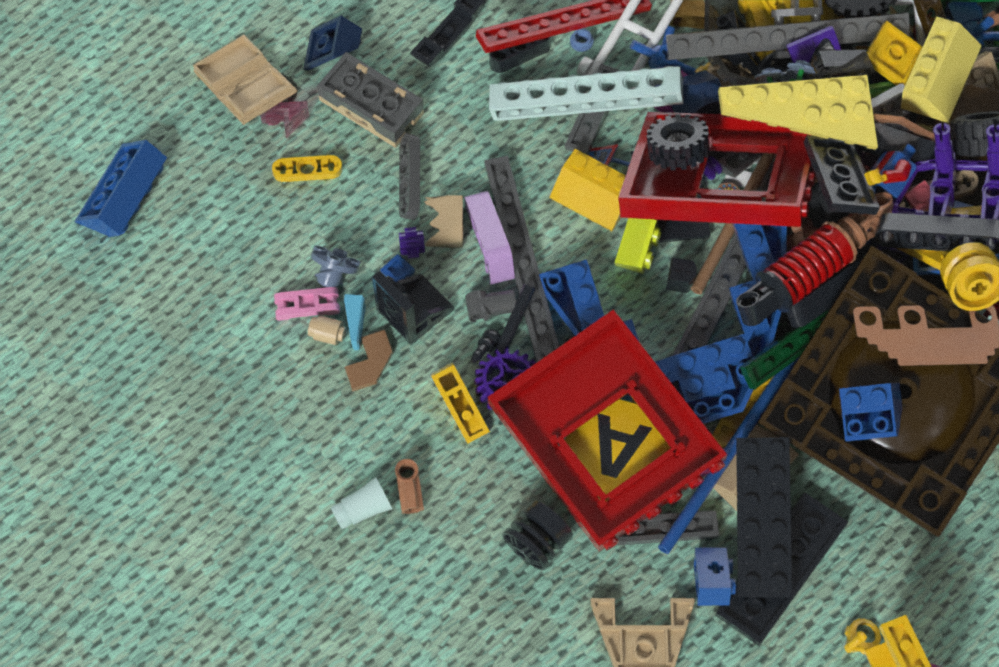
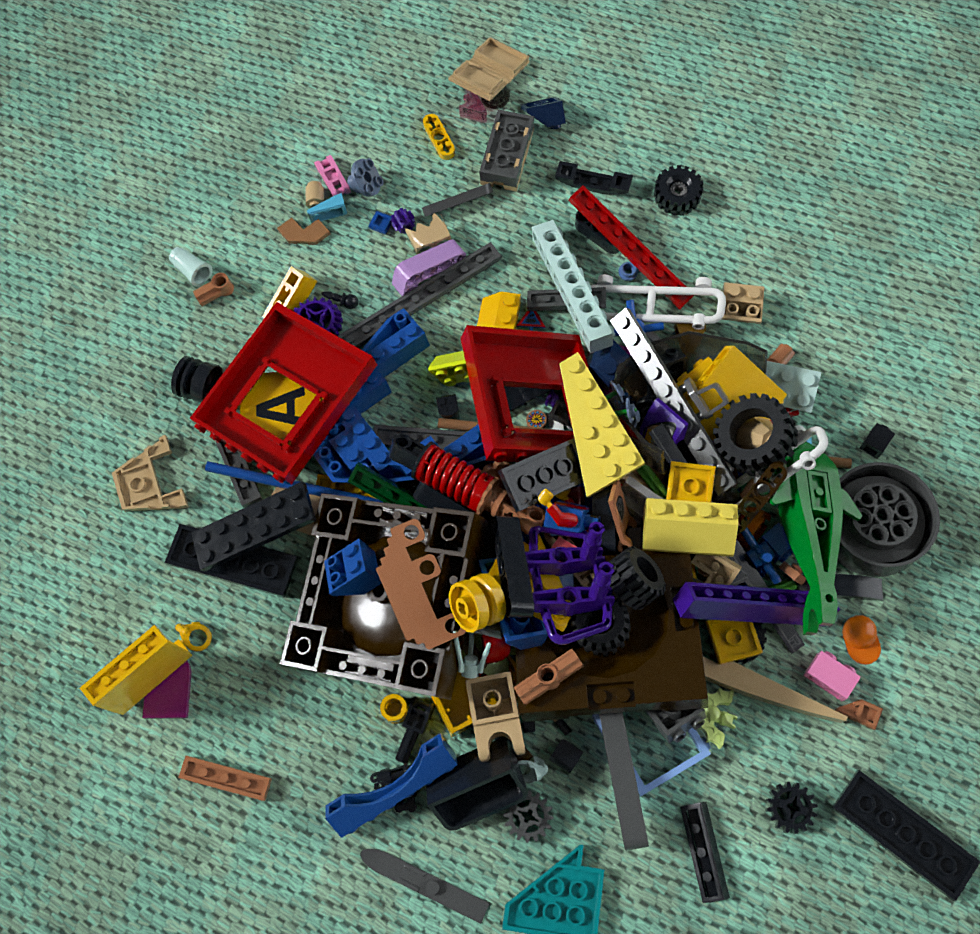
camera: 75 degrees right, 5 degrees up
(122, 188) = (374, 36): blue slope -> none
(410, 304) = (345, 234): black bracket -> none
(484, 305) = (373, 287): dark grey piece -> none
(515, 318) = (366, 308): black piece -> none
(678, 142) = (540, 353): black bush -> none
(712, 576) = (191, 509): blue brick -> none

